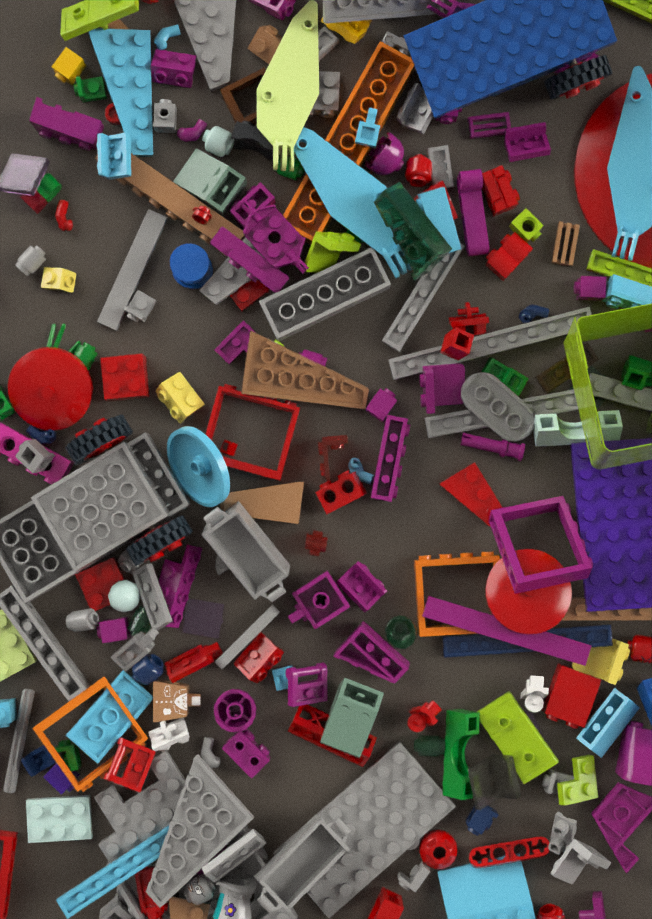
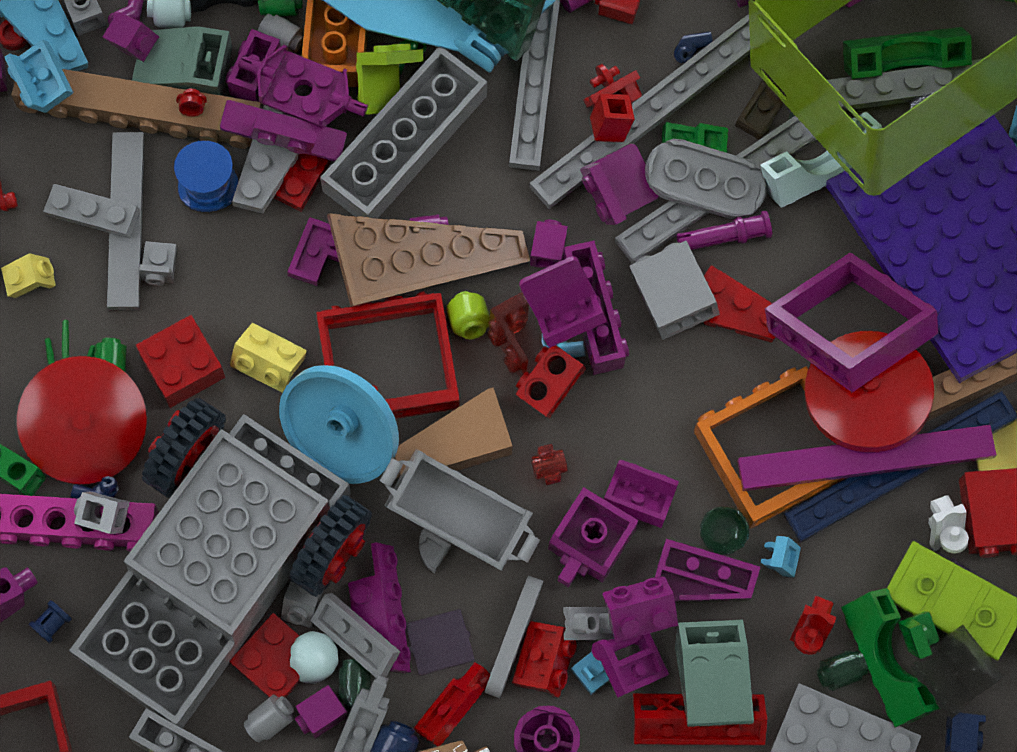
camera: 25 degrees left, 15 degrees down
(113, 255) = (92, 210): none -> light grey plate
(185, 150) = (130, 36): none -> magenta brick
(280, 190) = (284, 30): none -> light grey brick
(295, 651) = (587, 623): none -> light grey hips
(311, 427) = (468, 315): none -> lime head
(325, 660) = (641, 608): none -> magenta bracket
(368, 454) = (562, 301): none -> magenta bracket
(429, 663) = (784, 556): none -> medium azure tile
(443, 469) = (674, 289): none -> light grey brick
(484, 748) = (919, 634): none -> green bracket

